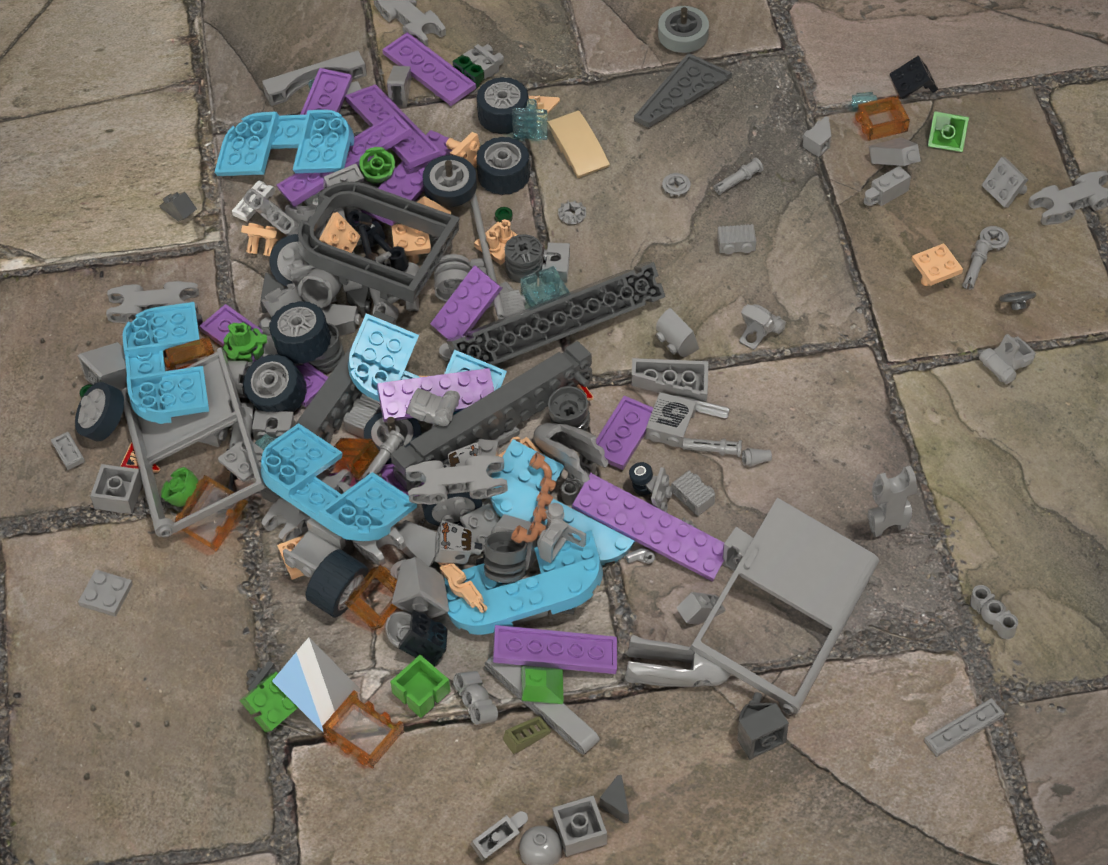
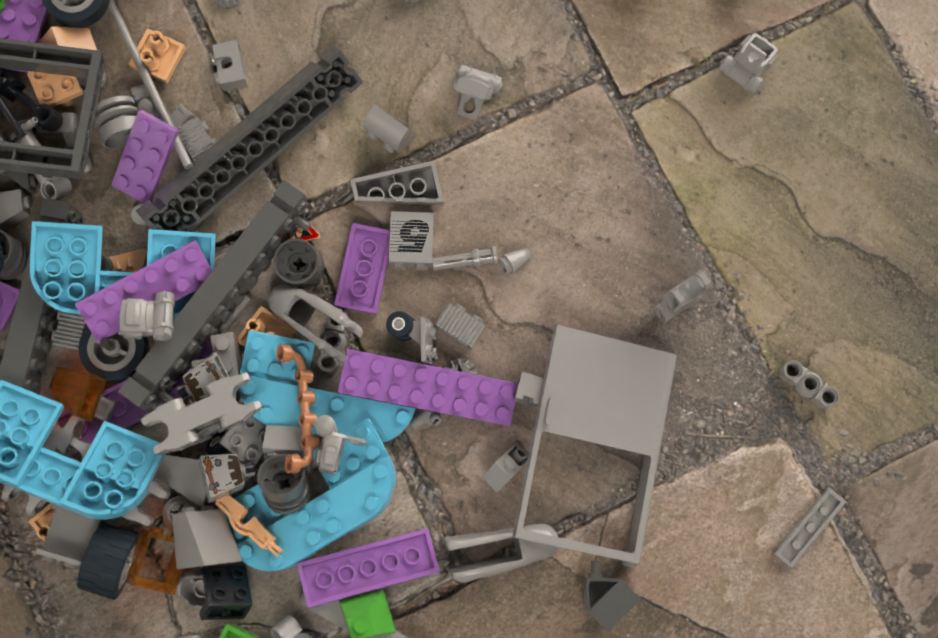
camera: 20 degrees left, 25 degrees up
(386, 449) = (112, 377): light grey pin -> none
(503, 213) = (151, 15): dark green tile -> none
(523, 257) = (195, 82): dark grey wheel -> none
(549, 286) = (228, 111): clear light blue piece -> none
(710, 408) = (446, 211): light grey axle -> none

